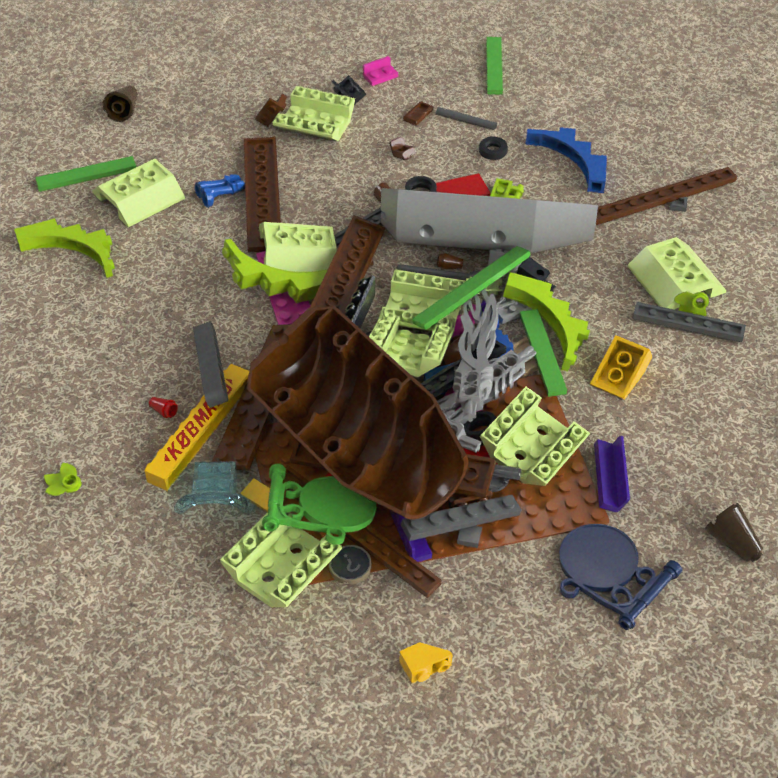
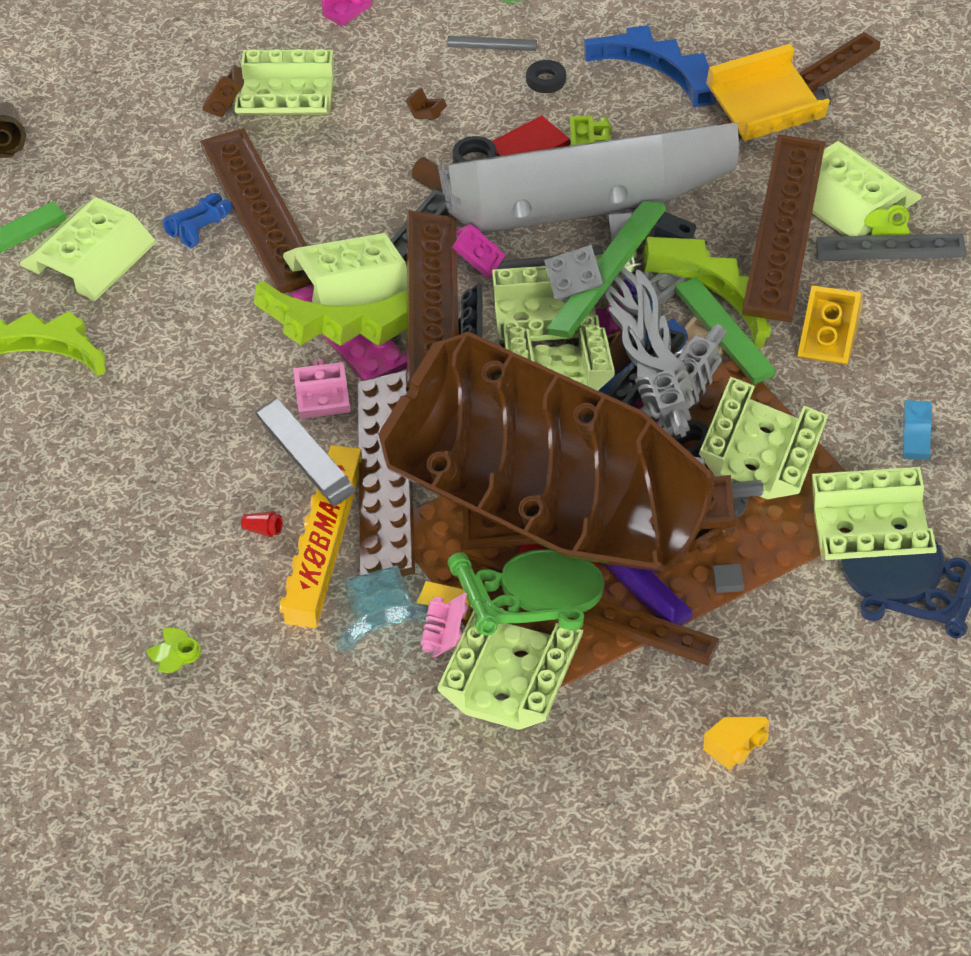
camera: 15 degrees left, 0 degrees up
(245, 323) = (321, 389): none -> bright pink plate
(255, 507) = (444, 624): none -> bright pink hinge
(349, 88) = (314, 37): black bracket -> none
(350, 565) = (598, 652): black tile -> none
(391, 253) = (478, 250): none -> dark pink bracket
(418, 113) = (423, 50): reddish brown tile -> none
(446, 284) = (573, 273): none -> light grey hinge
(448, 261) = (553, 243): reddish brown cone -> none
(461, 517) = (712, 558): dark grey plate -> none
(595, 509) = (870, 507): none -> yellowish green slope
(610, 290) = (784, 229): none -> reddish brown plate
(611, 474) = (865, 444): dark purple panel -> none
(638, 192) = (764, 93): none -> yellow panel
(655, 461) = (917, 429): none -> dark azure arch

